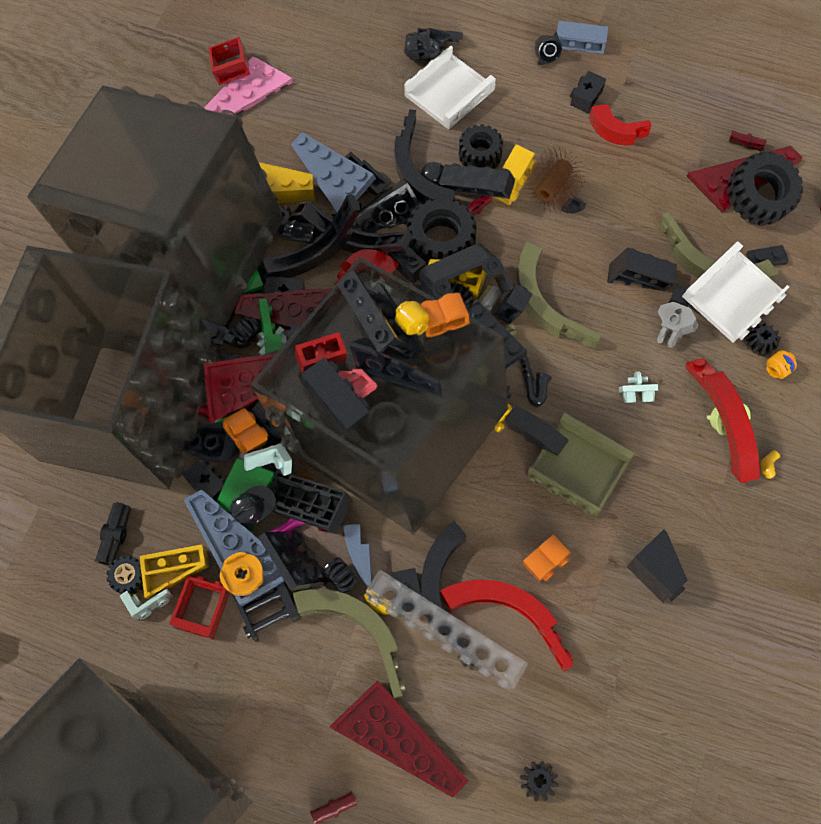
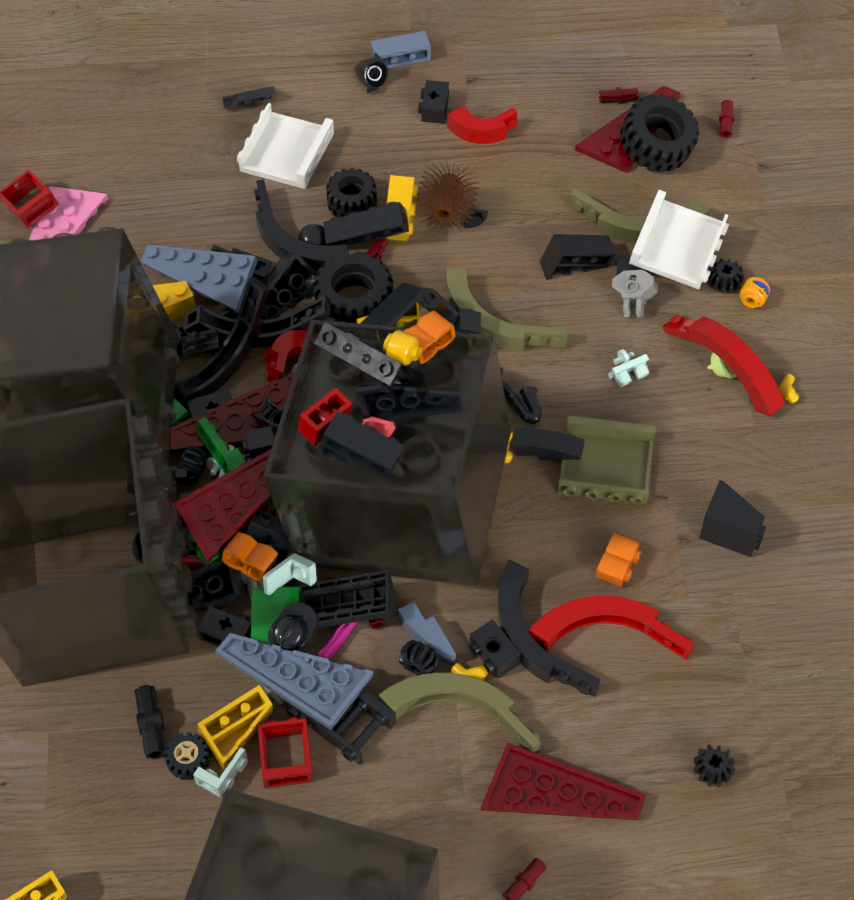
camera: 25 degrees left, 10 degrees down
(252, 579) = (318, 680): light orange plate -> none
(293, 559) = (364, 659): black plate -> none
(424, 44) = (238, 111): black helmet -> none
(514, 666) = (565, 653): clear brick -> none
(775, 254) = (699, 192): black plate -> none

